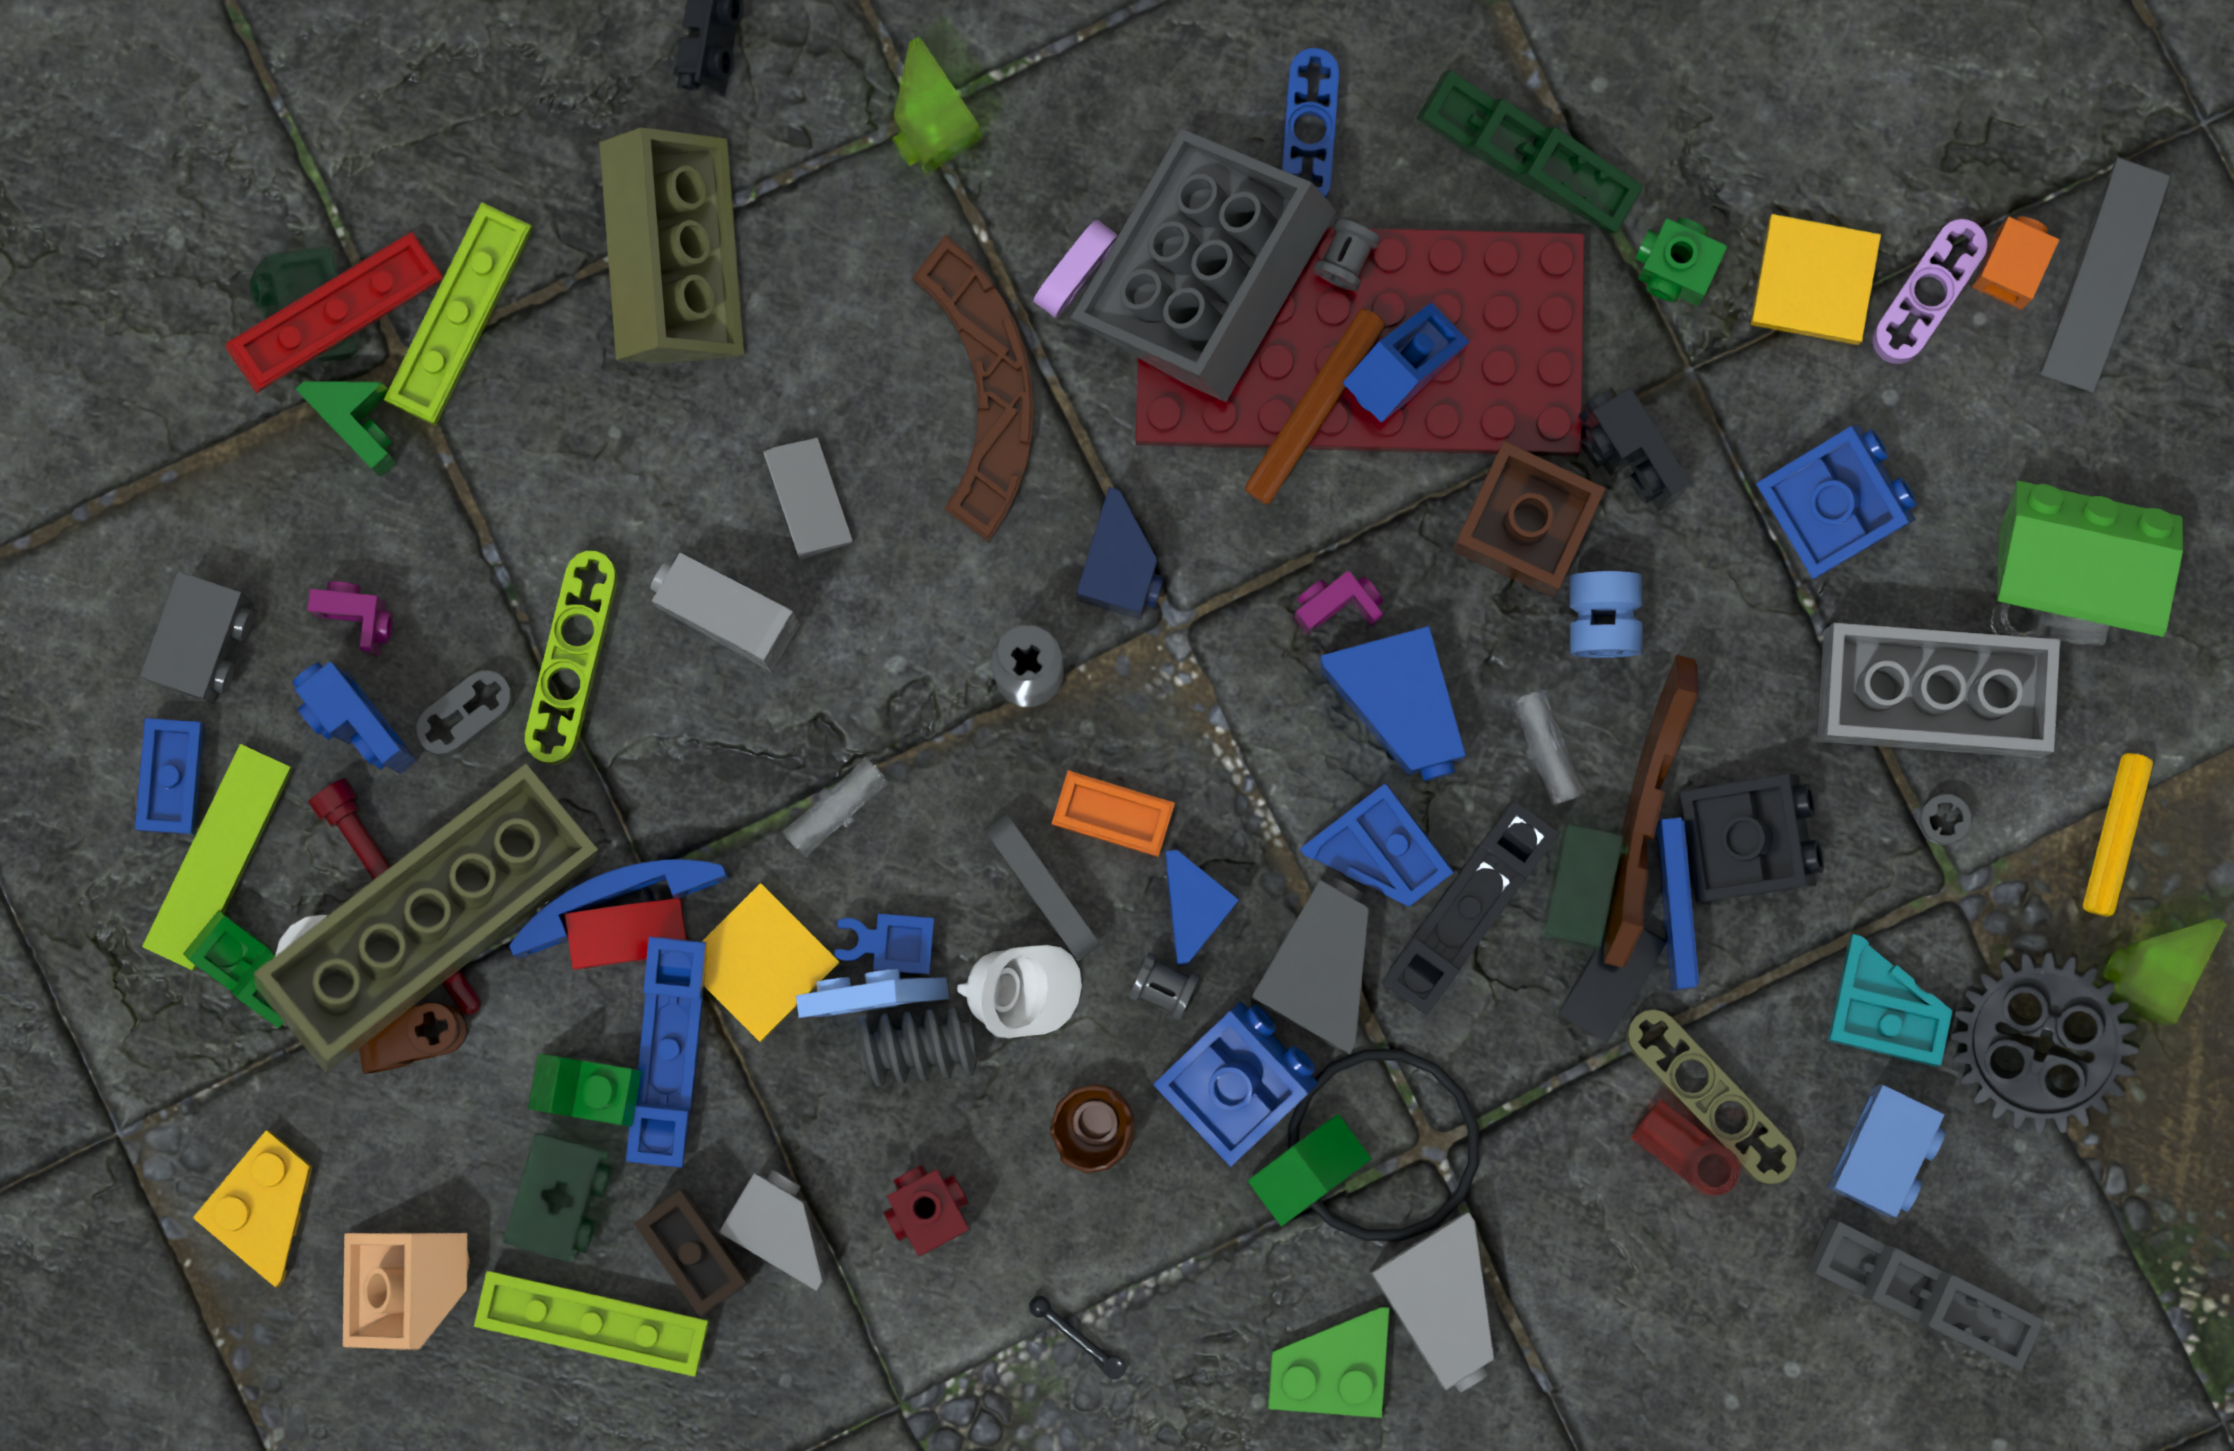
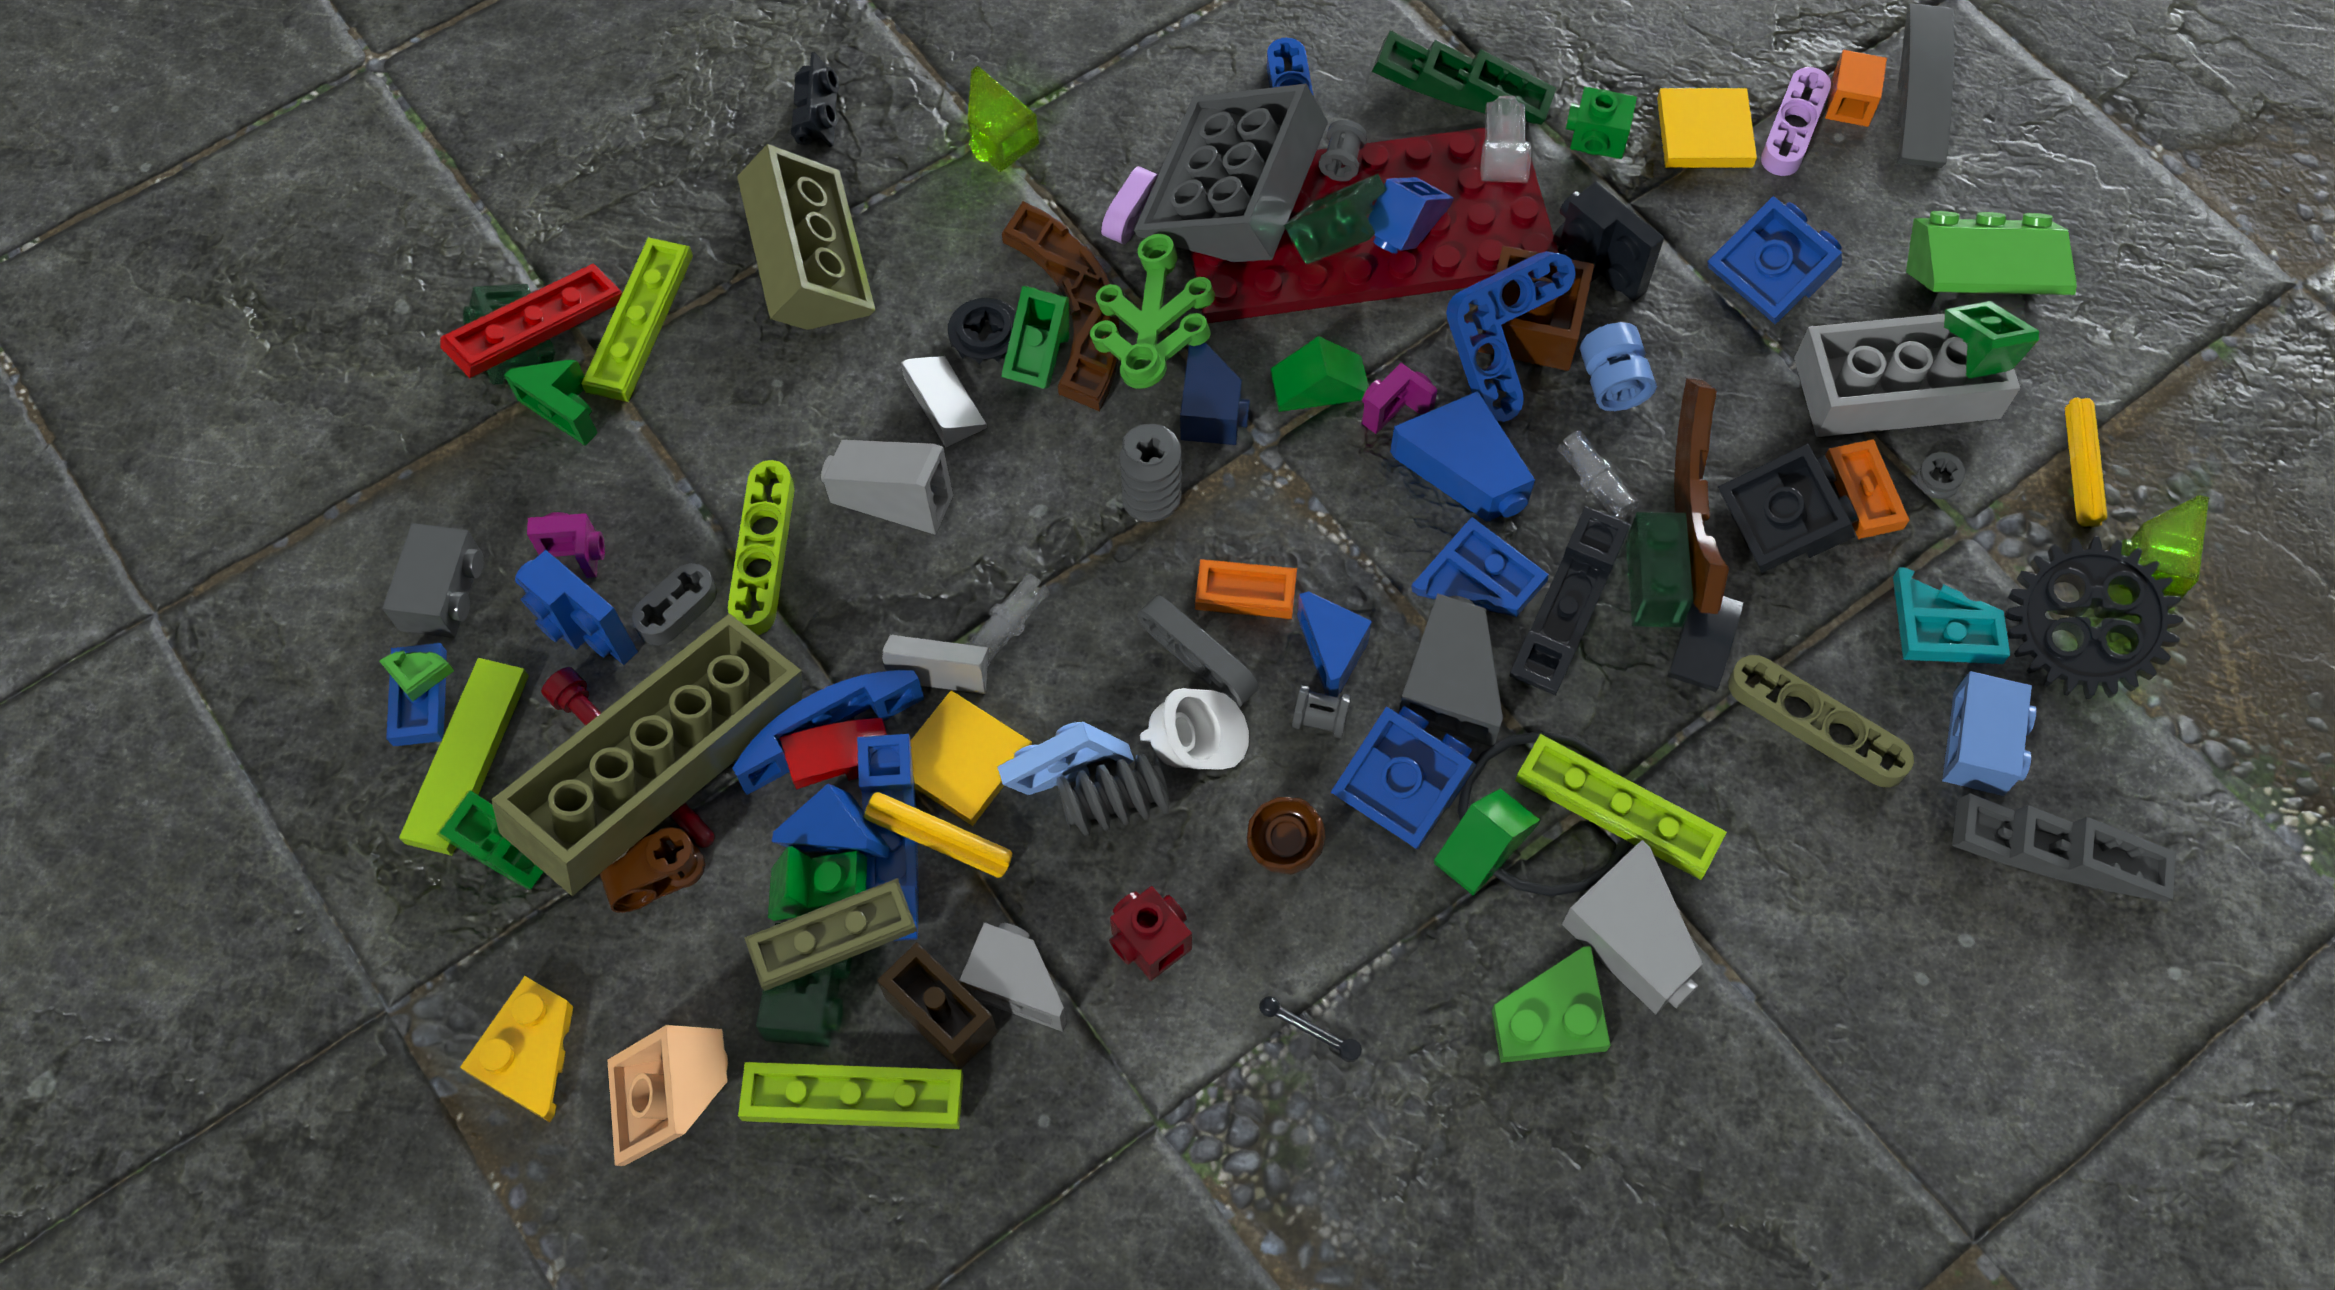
camera: 10 degrees left, 20 degrees down
(171, 756) = (416, 671): none -> bright green tile
(592, 1160) = (830, 934): none -> olive tile
(613, 1033) = (832, 825): none -> blue slope
(721, 1057) = (938, 834): none -> yellow axle
(749, 849) = (939, 662): none -> light grey slope
(857, 390) = (971, 318): none -> black gear
(896, 944) = (1077, 706): blue plate -> none
(927, 450) = (1036, 337): none -> green slope
(1067, 455) = (1146, 361): none -> bright green plant
(1255, 555) = (1318, 376): none -> green slope
(1308, 365) = (1335, 220): none -> clear green bracket
(1314, 406) = (1330, 288): dark orange axle -> none
(1462, 1158) = (1620, 806): none -> lime tile
(1464, 544) = (1492, 314): none -> blue beam
(1546, 293) = (1504, 150): none -> clear piece
(1677, 904) = (1745, 572): blue tile -> none
(1682, 1146) = (1813, 764): clear red piece -> none
(1850, 824) = (1869, 487): none -> orange plate
(2029, 685) = (1992, 336): none -> green slope

